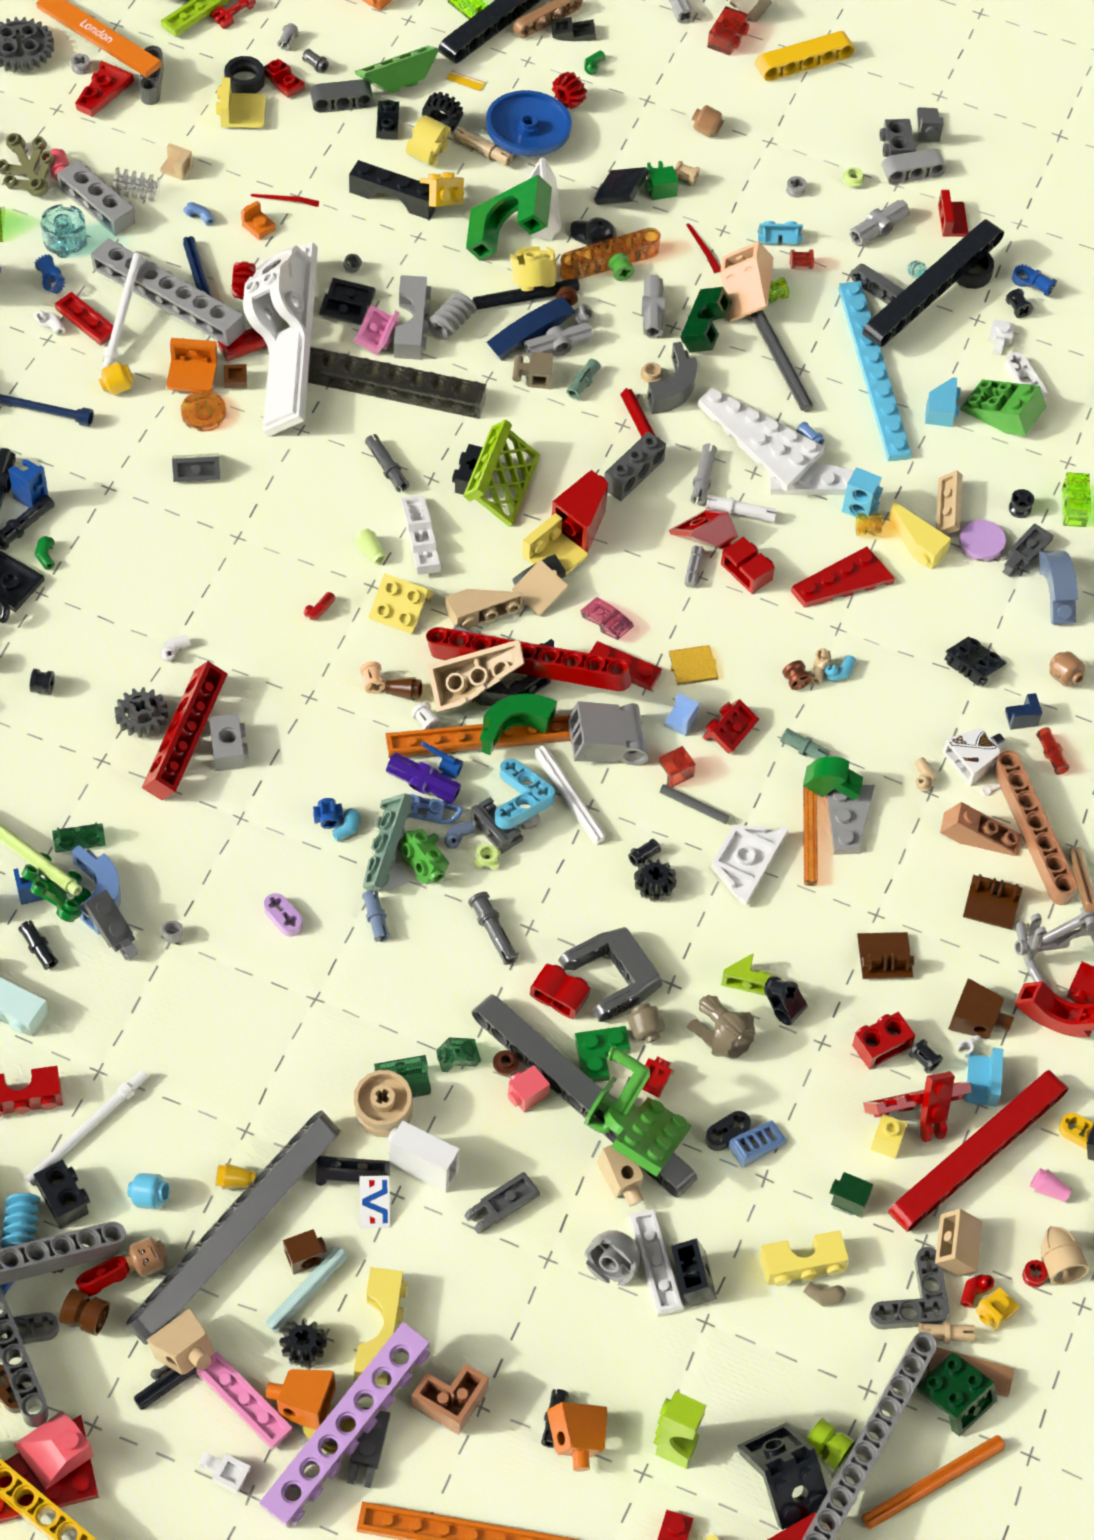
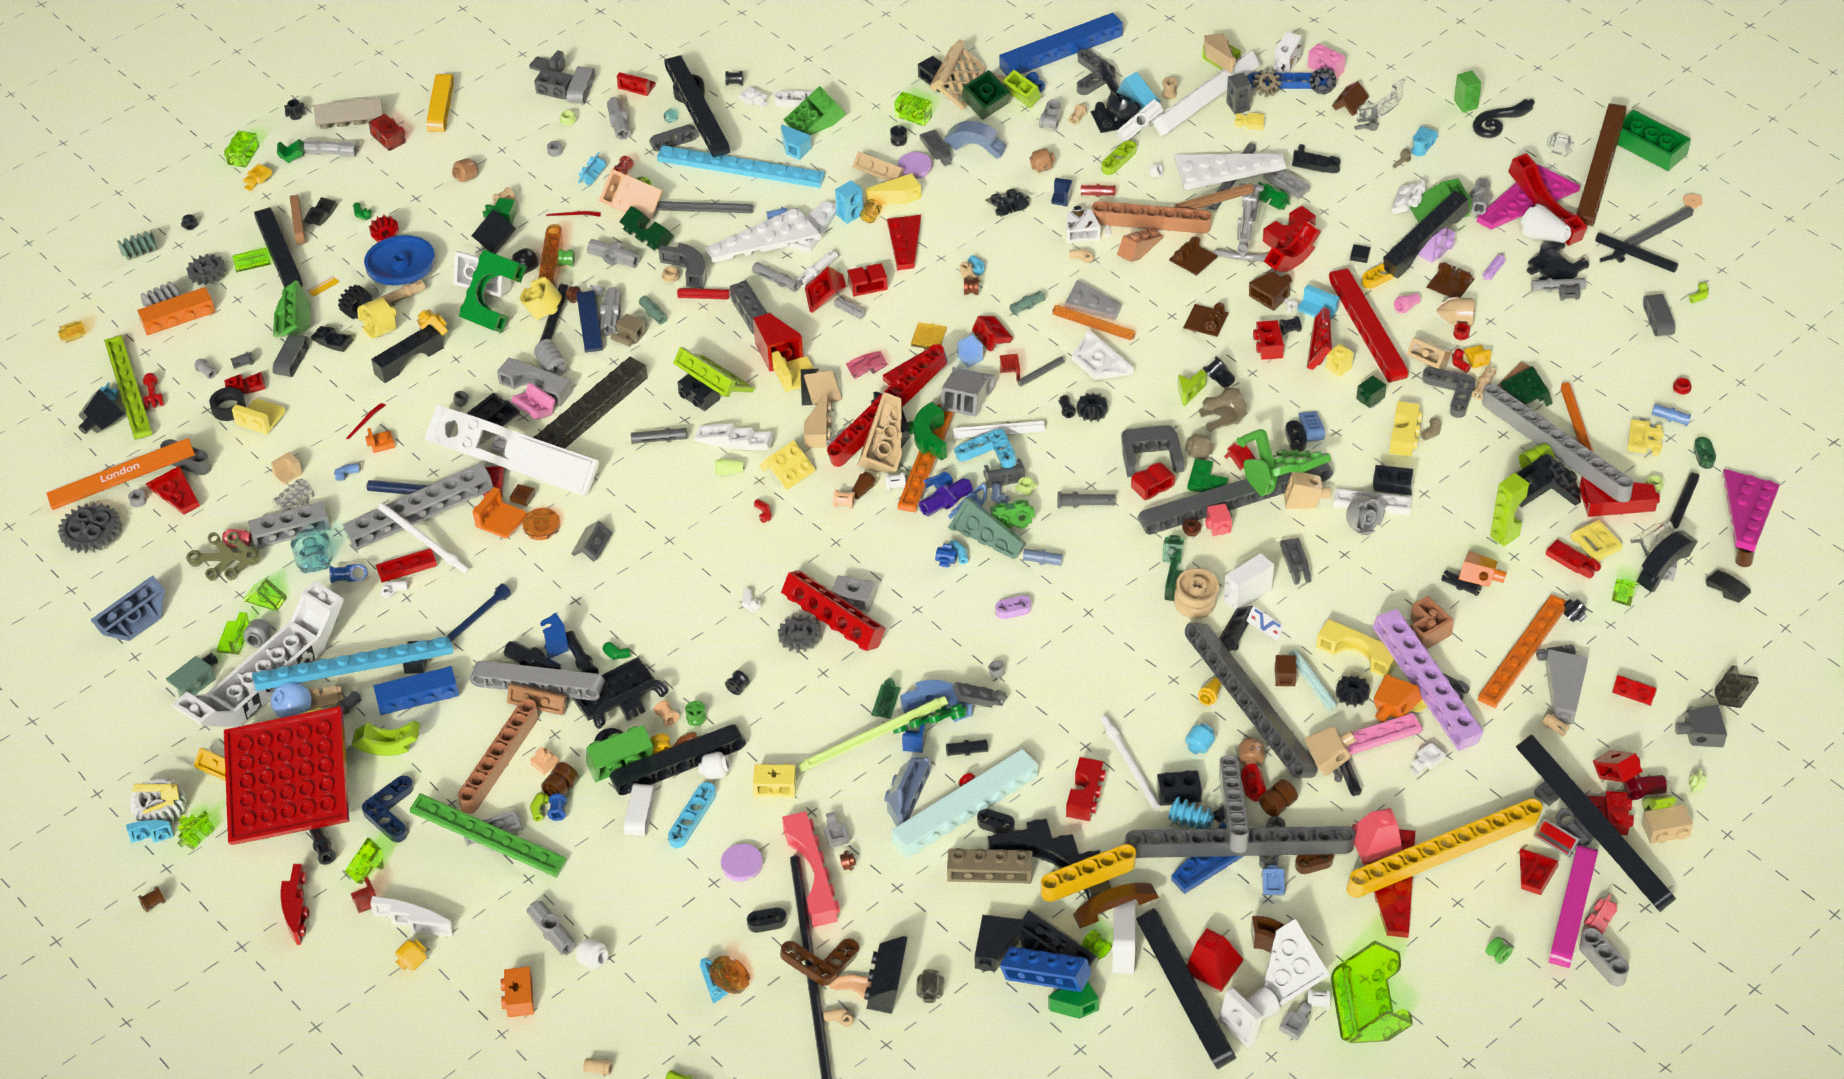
camera: 60 degrees left, 10 degrees down
(116, 378) = (479, 562): yellow head -> none
(241, 273) = (438, 460): red gear -> none
(830, 774) = (1064, 292): green brick -> none
(936, 1105) = (1336, 327): red hinge -> none
(1035, 279) = (718, 64): blue connector -> none

